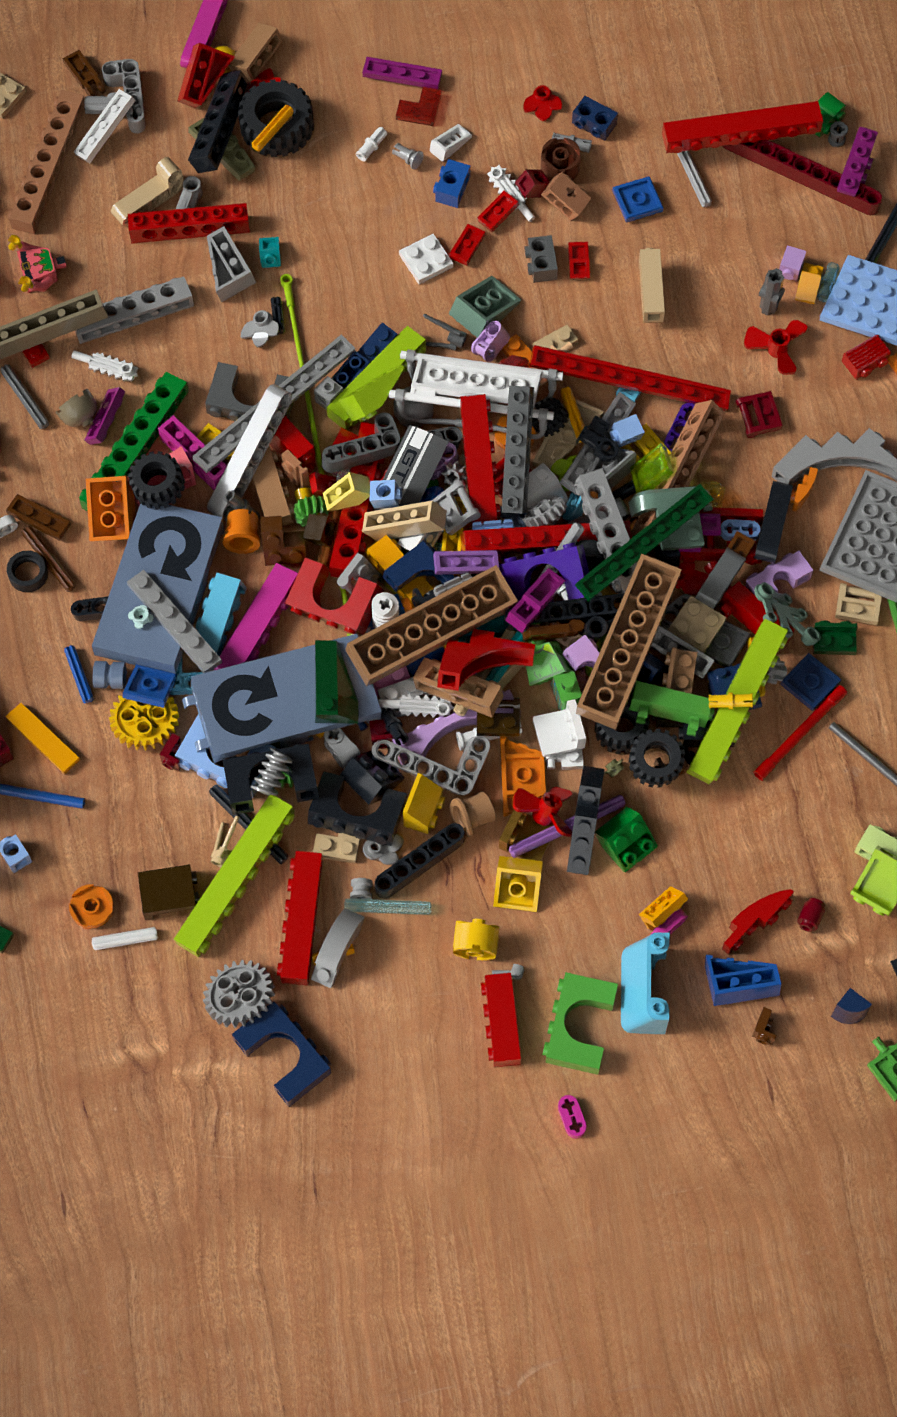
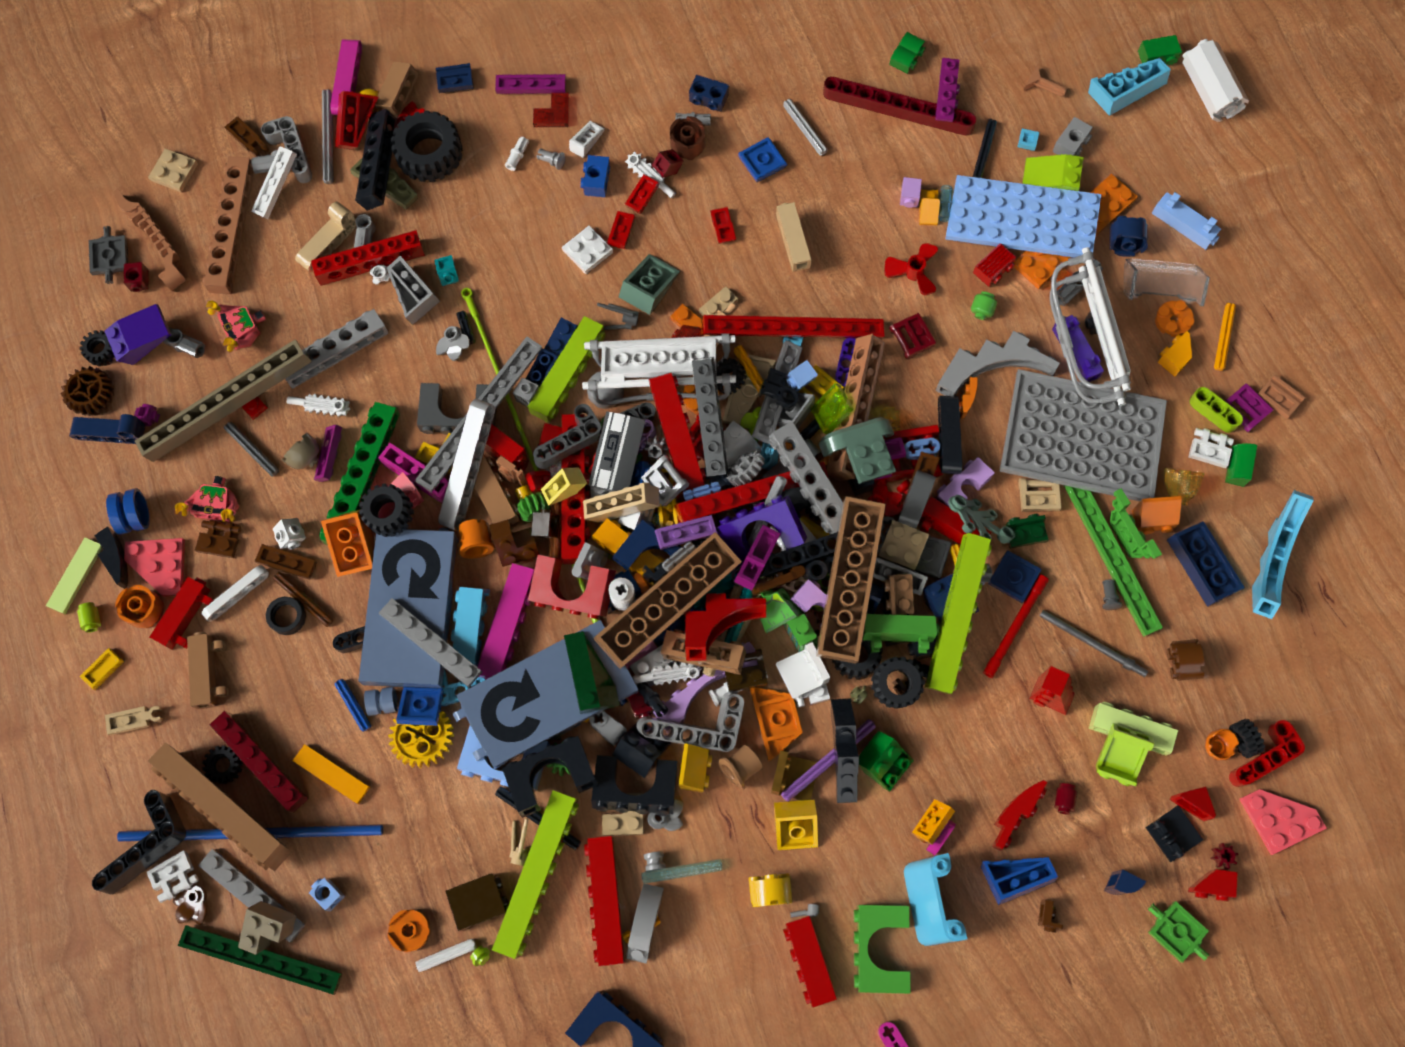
camera: 10 degrees left, 5 degrees up
(48, 488) = (289, 533): none -> white brick
(138, 611) = (392, 643): light aqua plate -> none
(160, 945) = (480, 956): none -> lime plate
(169, 751) = (451, 763): dark red bracket -> none
(170, 89) = (327, 137): none -> light grey axle
(197, 238) = (379, 270): none -> white plate
(234, 990) = (558, 972): light grey gear -> none
(238, 503) = (467, 514): dark grey pin -> none
(272, 128) = (425, 156): light orange axle -> none
(272, 773) = (552, 773): light grey piece -> none
(320, 52) = (454, 78): none -> dark blue plate
(367, 399) = (567, 389): lime slope -> none
(378, 488) = (590, 481): light blue brick -> none
(423, 851) = (706, 812): black beam -> none
(492, 341) = (662, 315): lavender piece -> none
(542, 105) = (659, 90): red plate -> none
(544, 258) = (693, 229): dark grey brick -> none
(544, 809) = (807, 749): red piece -> none
(566, 196) = (699, 169): nougat brick -> none
(643, 542) = (843, 483): dark green plate -> none
(731, 700) = (954, 617): yellow pin -> none
(742, 127) = (841, 77): red brick -> none
(771, 291) = (901, 222): dark grey piece -> none
(823, 802) = (1053, 690): none -> red wedge
(843, 129) = (919, 71): dark grey bush -> none
(844, 396) = (984, 305): none -> bright green head

